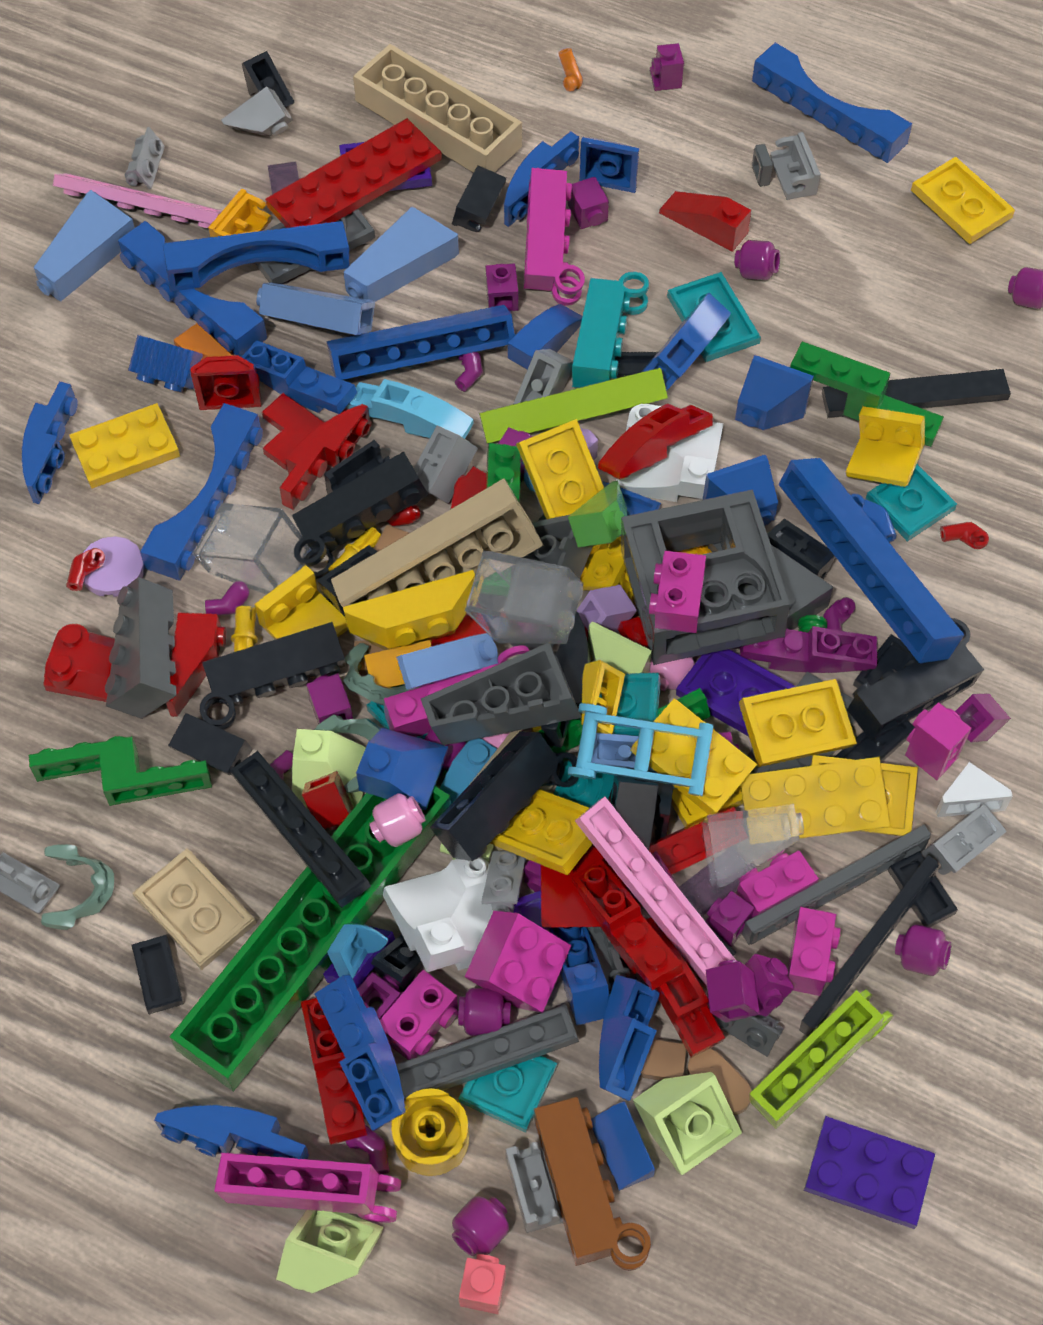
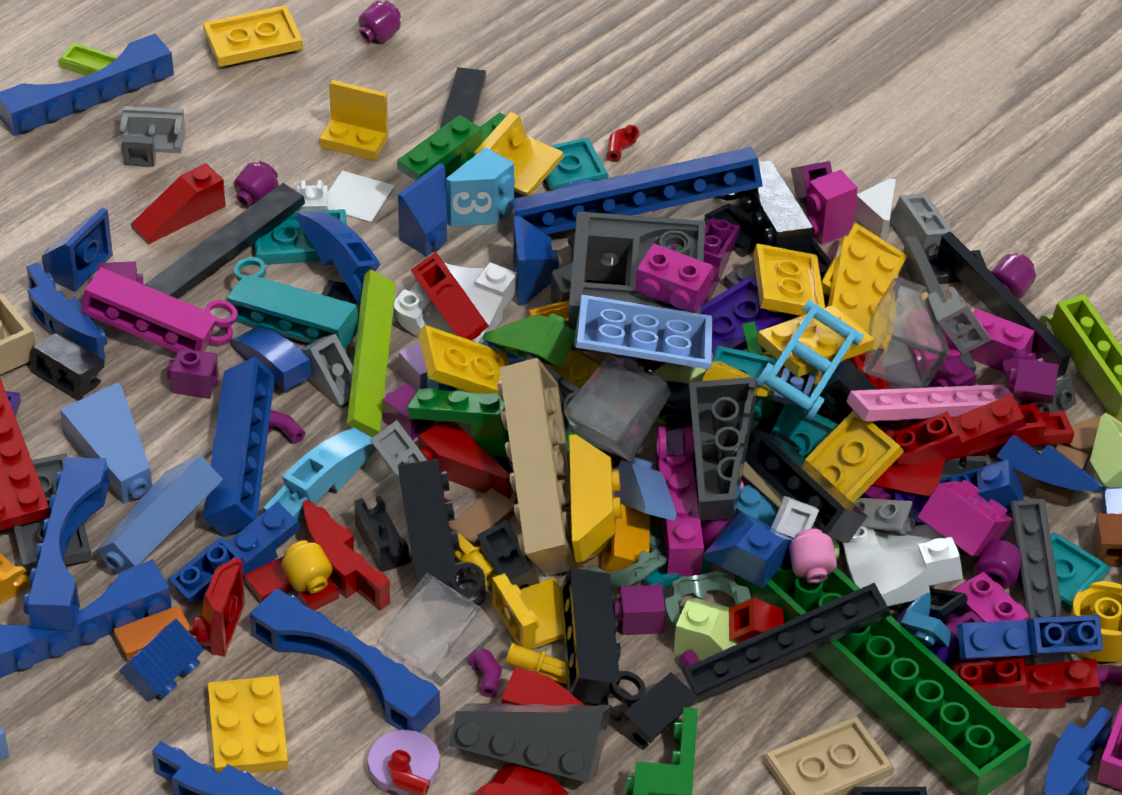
camera: 75 degrees left, 15 degrees down
(289, 427) = (306, 567): none -> yellow head
(439, 791) = (794, 517): none -> white tile
(595, 589) = (644, 331): none -> light blue slope
(672, 261) = (227, 241): none -> black tile
(765, 309) = (315, 196): none -> white tile
(779, 889) = (958, 322): none -> light grey hinge
(783, 339) = (358, 195): none -> white sticker
(818, 425) = (480, 190): none -> medium azure slope
(869, 92) = (84, 59): none -> lime tile
(871, 311) = (357, 121): none -> yellow bracket

